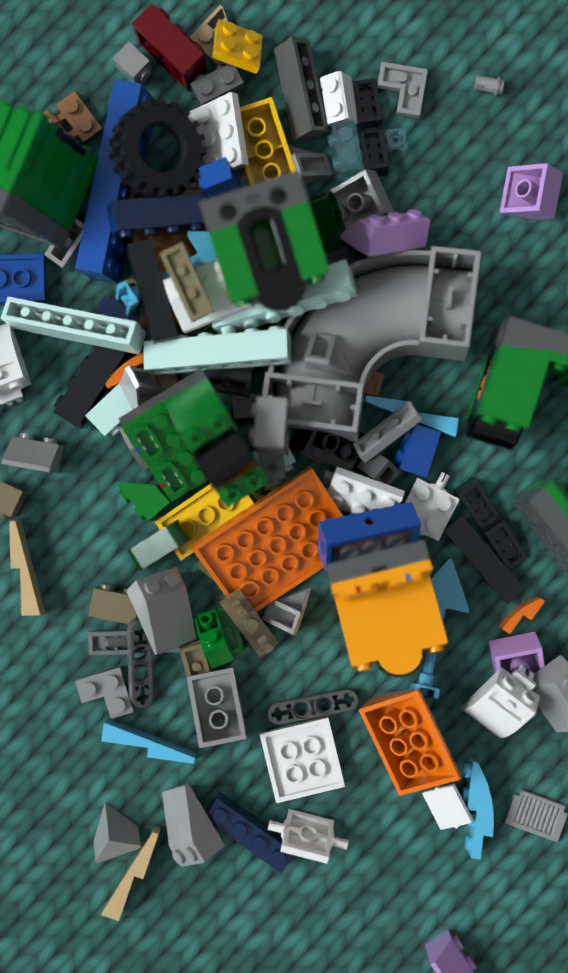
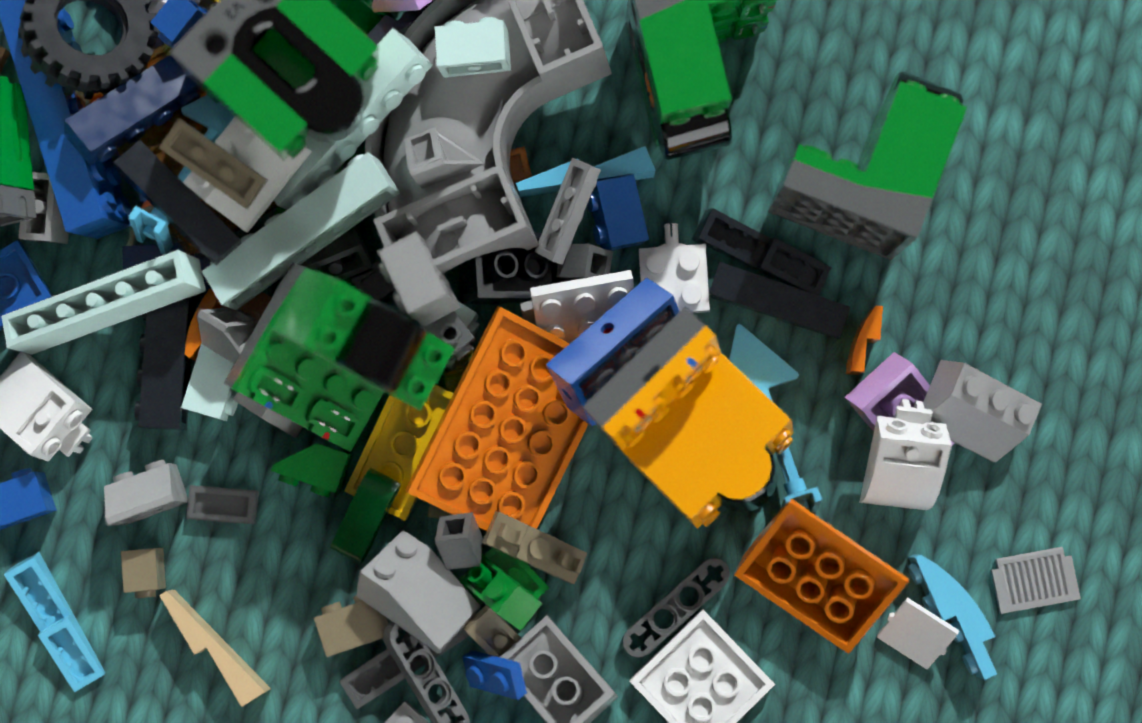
camera: 35 degrees left, 5 degrees down
(77, 486) = (222, 504): none -> dark grey tile
(181, 684) = (494, 674): none -> blue plate
(206, 594) = (459, 541): none -> dark grey brick
(287, 611) = (574, 505): light grey slope -> none
(388, 299) = (472, 47): none -> light aqua brick

